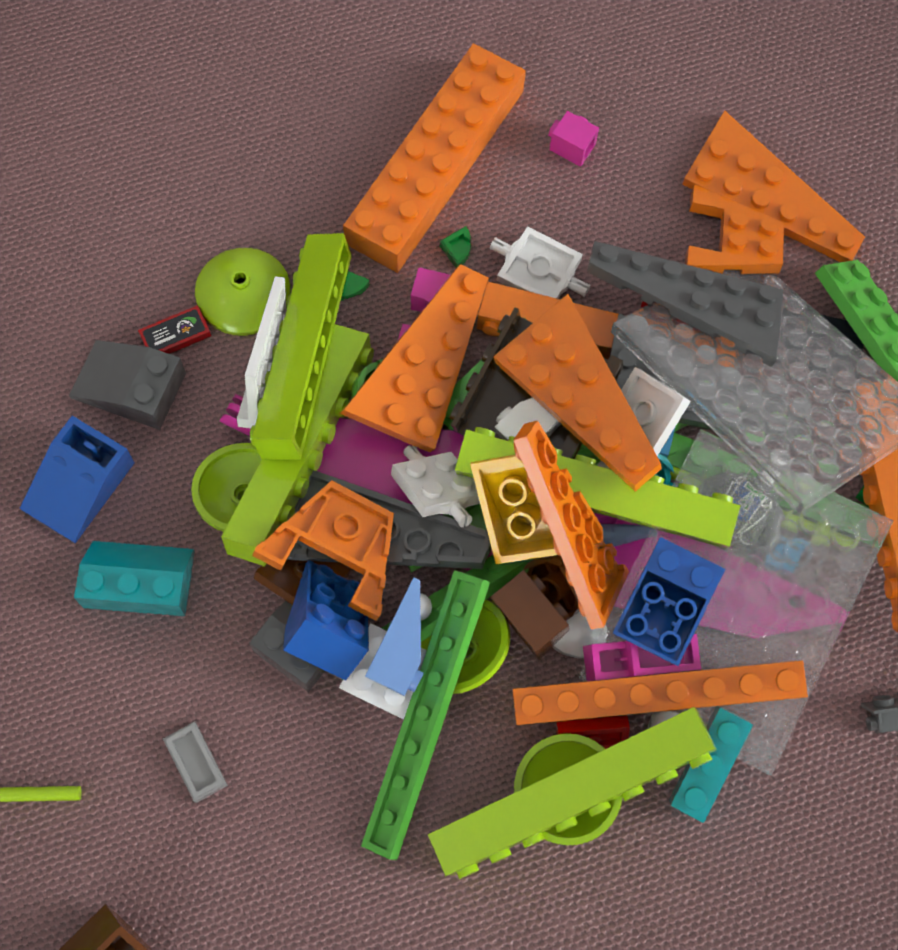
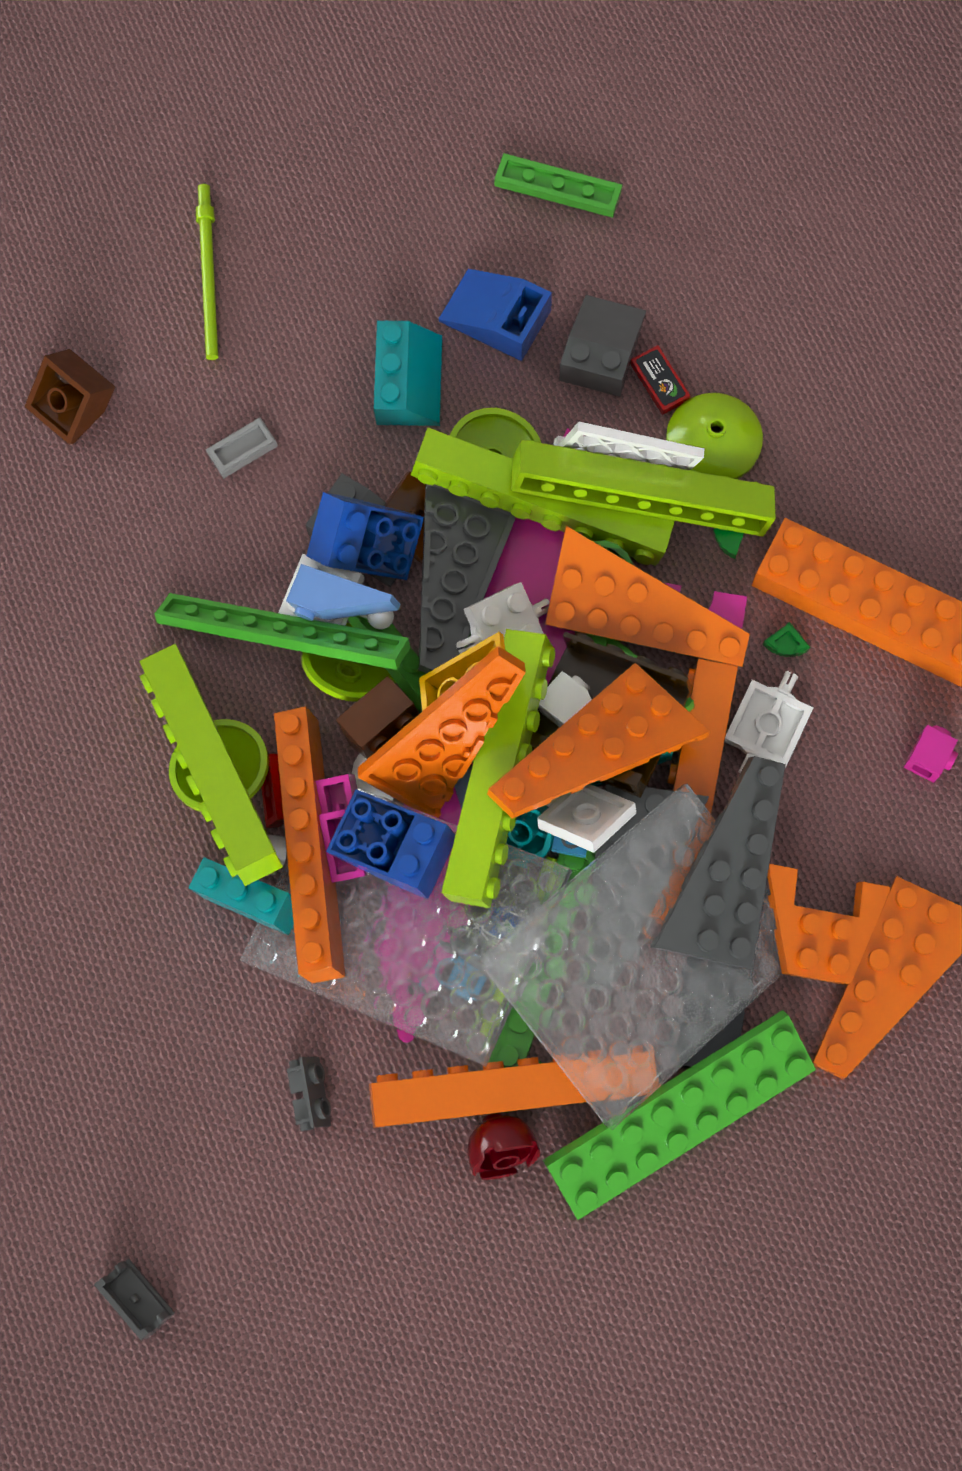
camera: 95 degrees right, 5 degrees up
(347, 531) = (444, 536): orange wing -> none

